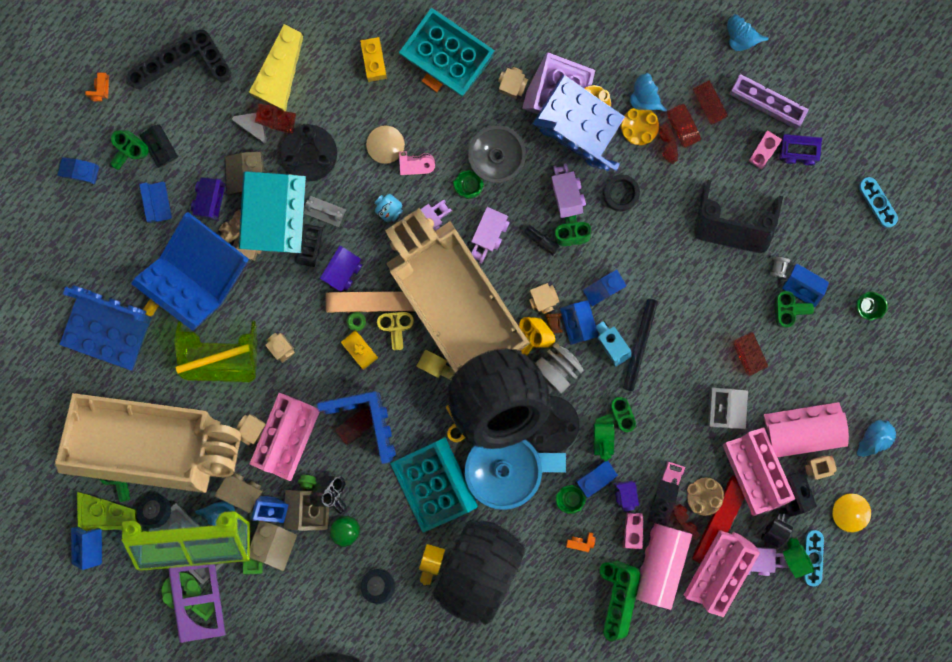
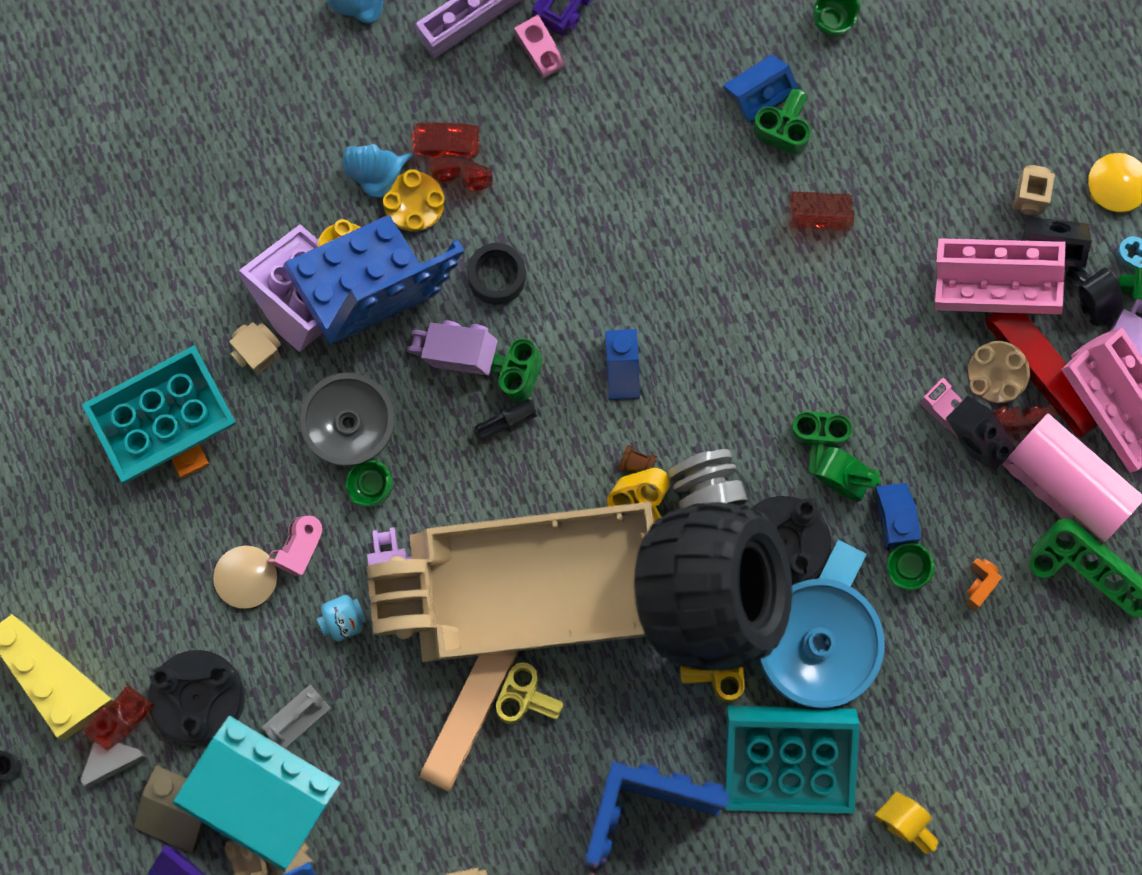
camera: 65 degrees left, 10 degrees down
(307, 261) = (355, 782): black slope -> none
(341, 269) = (397, 733): dark purple slope -> none
(351, 317) = (486, 742): bright green plate -> none
(355, 426) = (643, 830): slope -> none
(359, 349) = (531, 769): yellow beam -> none
(373, 59) = (110, 529): yellow brick -> none
(435, 365) = (612, 665): light yellow beam -> none
(479, 572) = (960, 748): black tyre -> none
(488, 232) = (454, 488): lavender brick -> none
(543, 298) = (593, 459): tan brick -> none
(579, 322) = (654, 427): blue panel -> none
(618, 350) = (723, 395): medium azure torso -> none
(626, 495) = (944, 480): dark purple window -> none
(633, 531) = (1001, 499): bright pink leg -> none
(640, 345) = (731, 356): black axle -> none
(710, 102) = (432, 87): clear red slope -> none
(727, 408) = (884, 279): light grey slope -> none
(733, 233) = (616, 170): black windscreen -> none
(779, 267) = (717, 108): light grey bush -> none
(807, 429) = (970, 181): bright pink brick -> none
(877, 437) = (1028, 96): dark azure hair -> none

